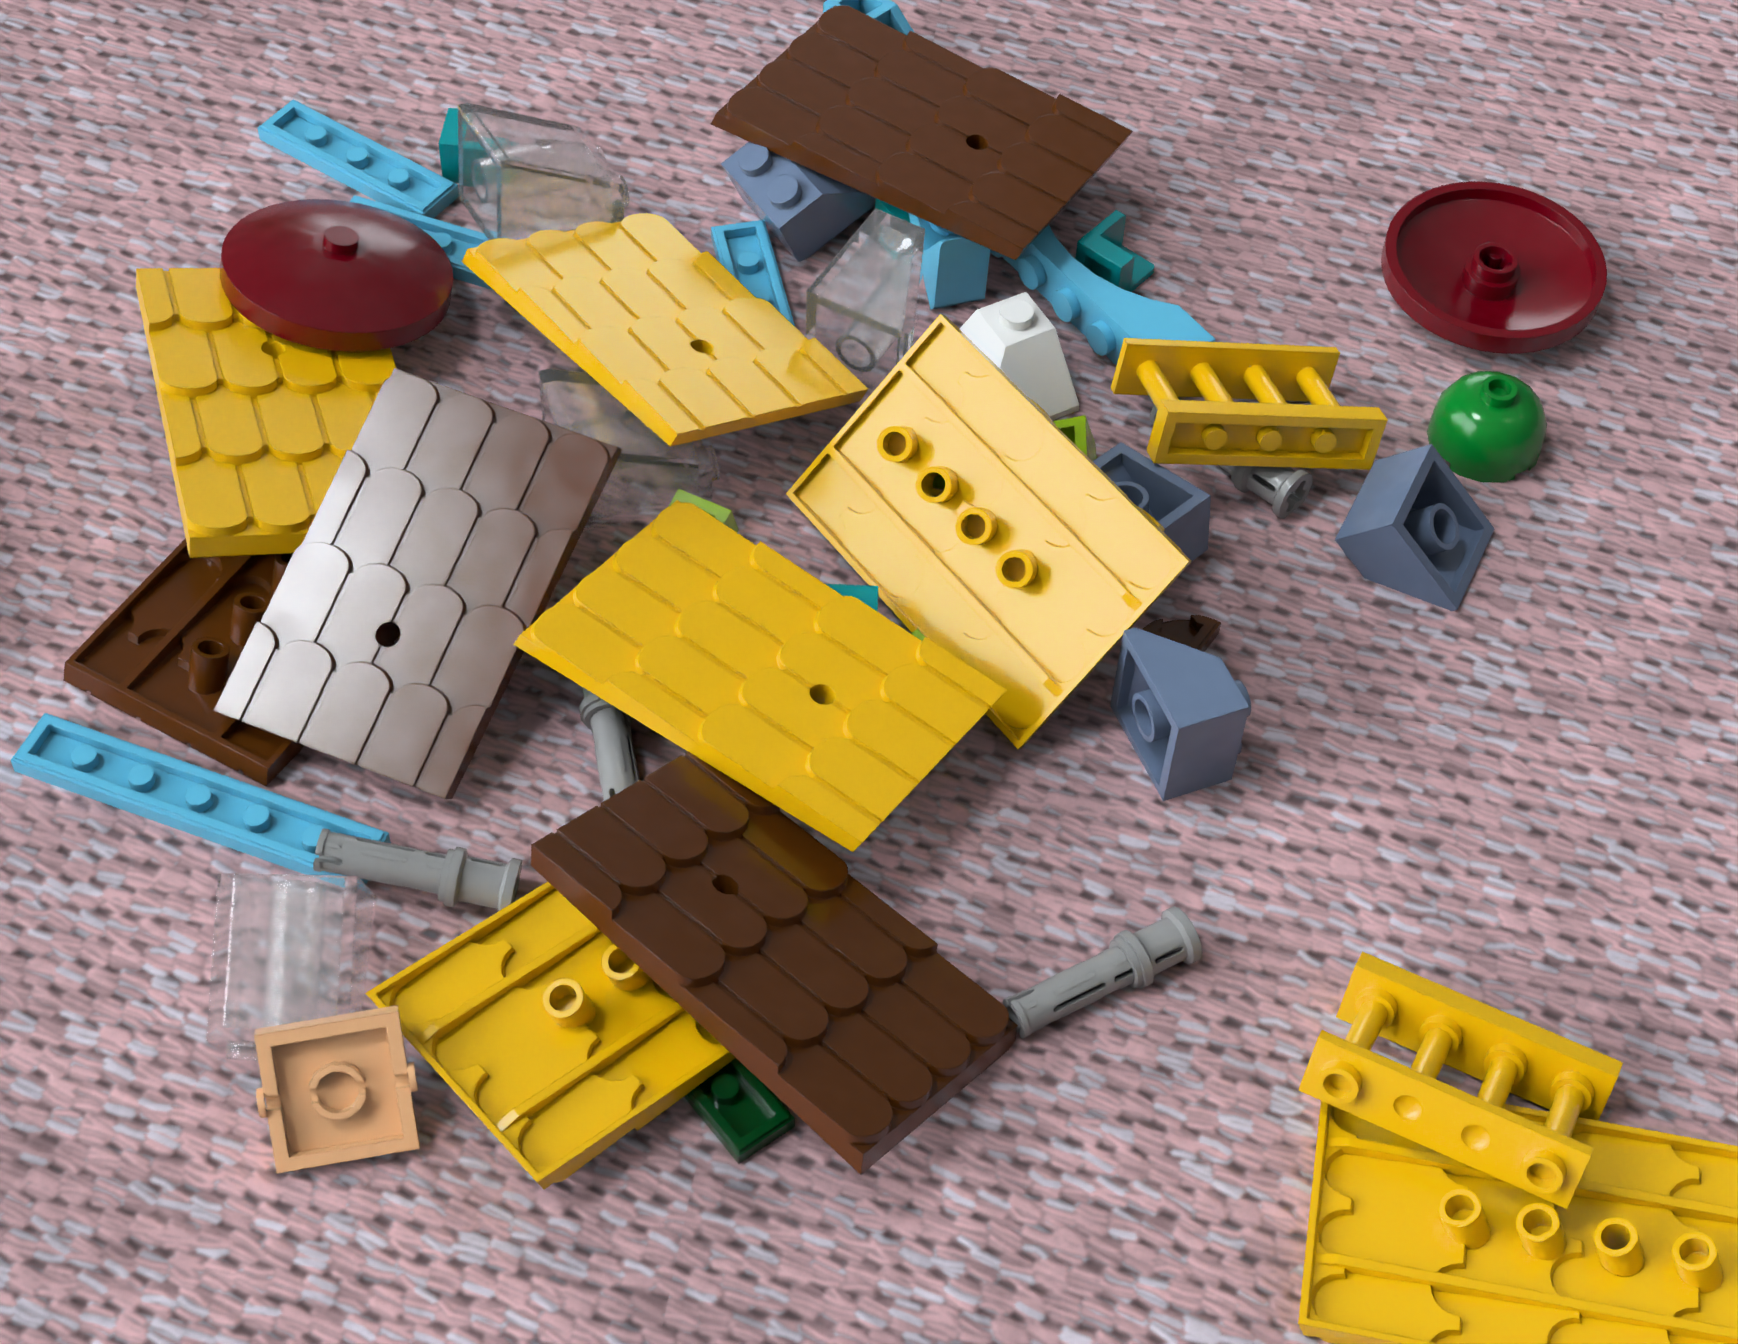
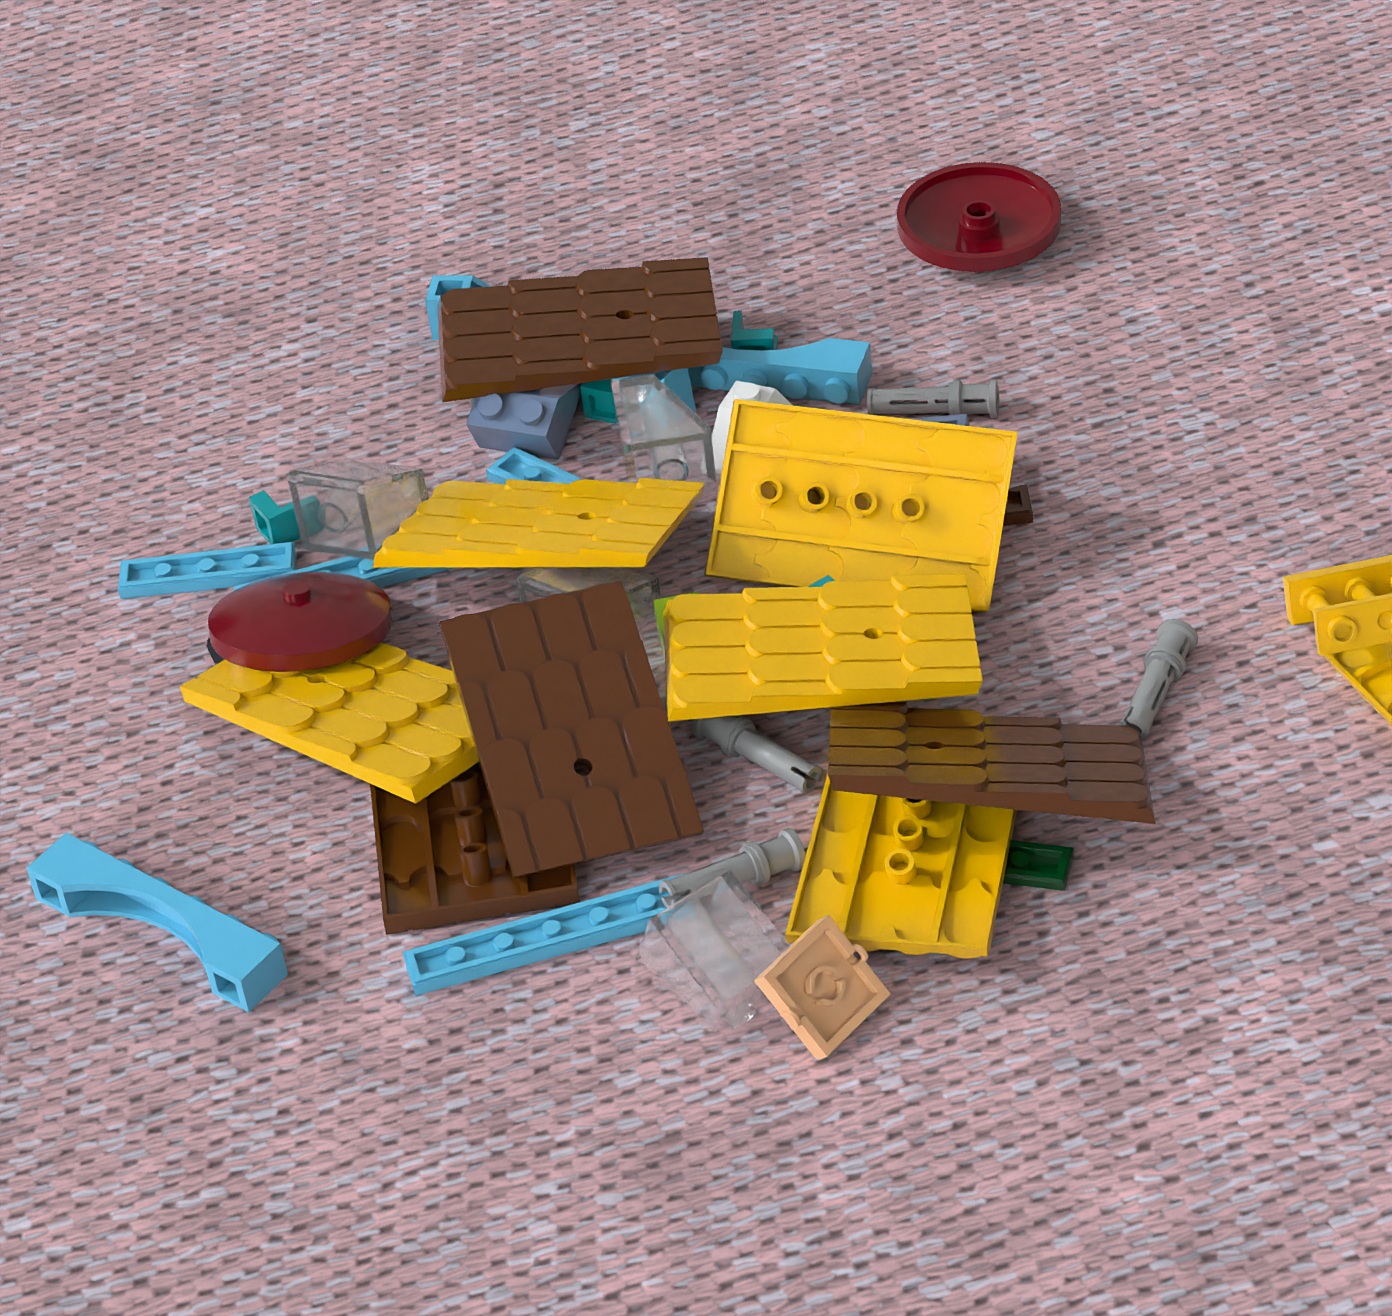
camera: 30 degrees left, 10 degrees down
(1179, 712) = (1062, 530): sand blue slope -> none
(1247, 432) = (929, 362): yellow fence -> none
(1416, 528) = (1079, 373): sand blue slope -> none
(1488, 426) = (1062, 301): green cylinder -> none

